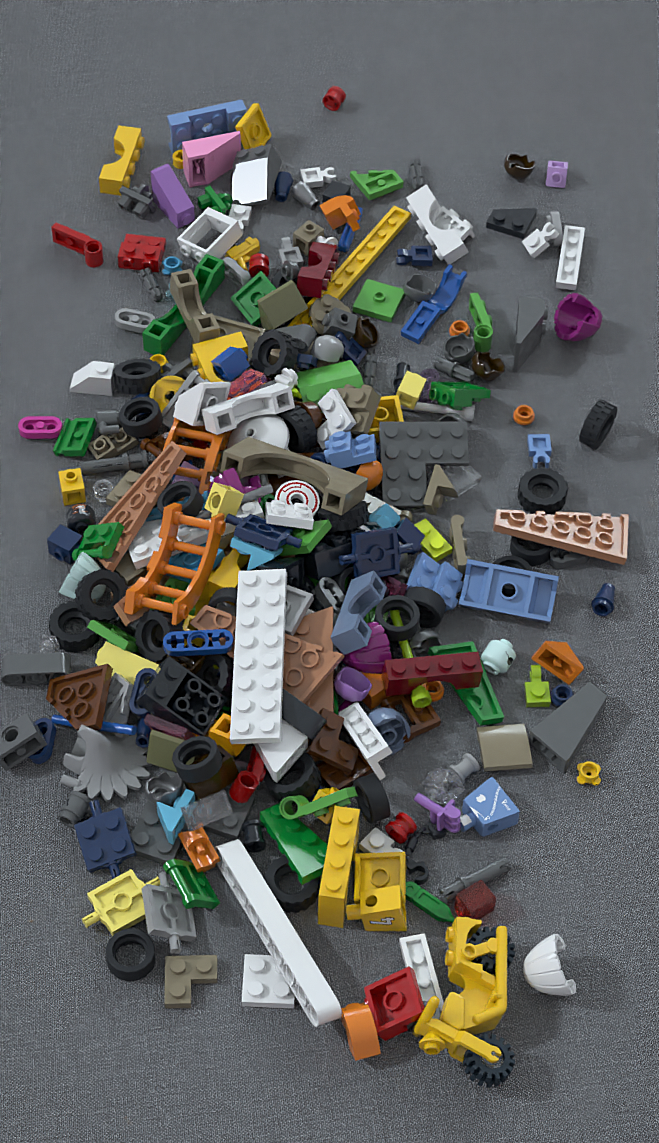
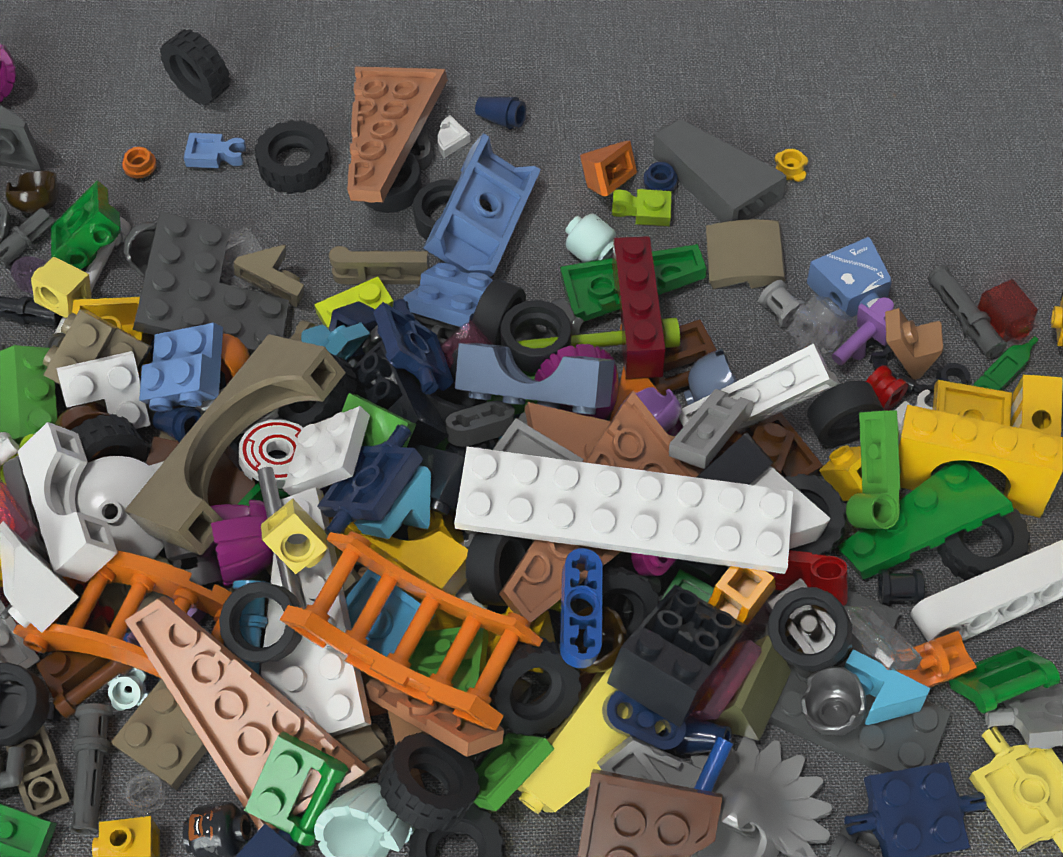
camera: 80 degrees left, 5 degrees up
(330, 704) = (710, 428): none -> light grey plate
(431, 831) = (913, 345): none -> medium nougat slope
(579, 576) = (451, 136): none -> white tile

